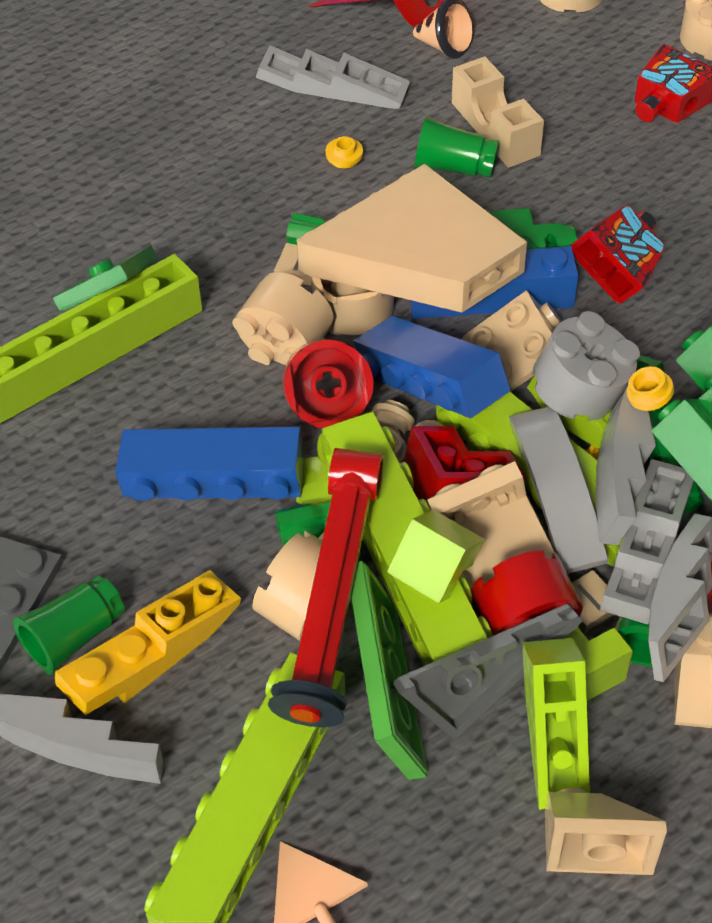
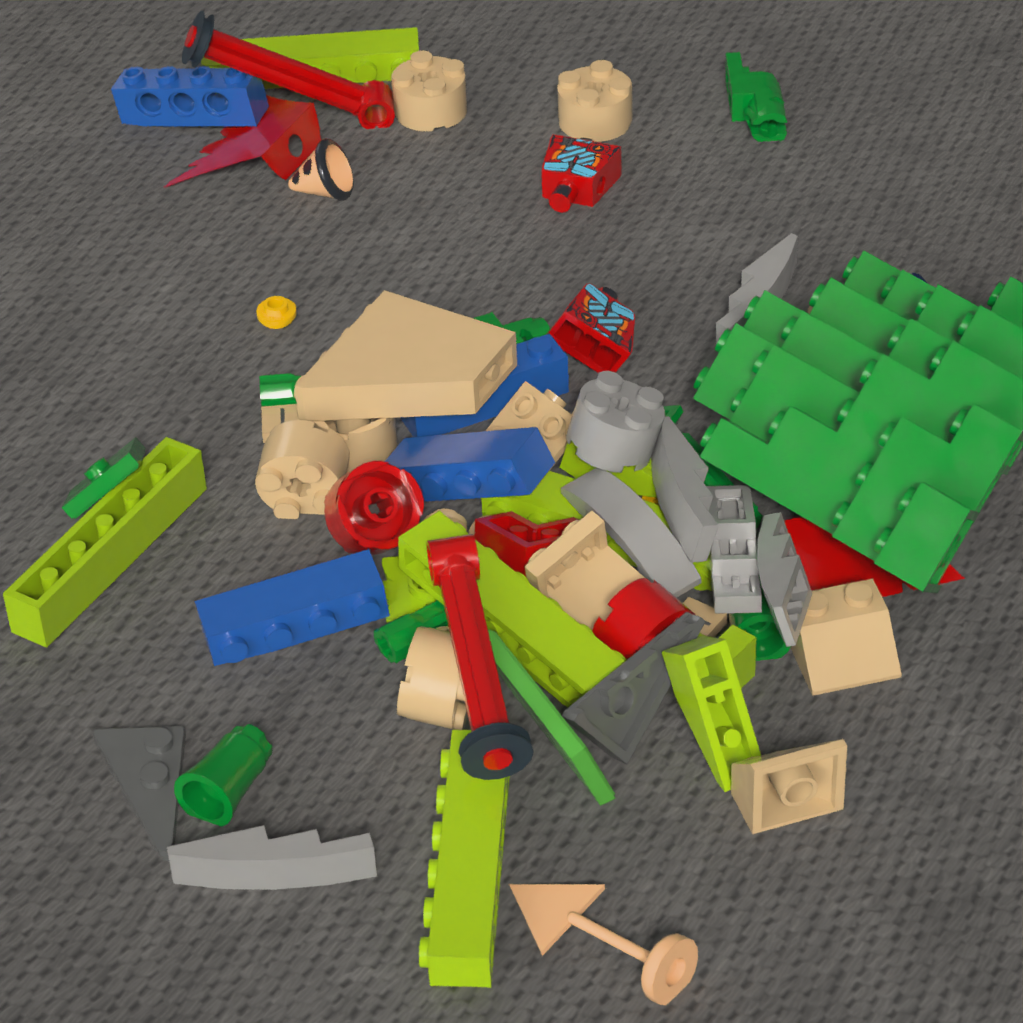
camera: 20 degrees left, 10 degrees down
(156, 642) = (316, 766): yellow slope -> none
(323, 77) = (242, 246): light grey slope -> none
(434, 555) = (554, 605): piece -> none
(455, 150) = (401, 277): green plant -> none
(482, 102) = (438, 250): tan arch -> none
(649, 389) = (685, 420): yellow plate -> none

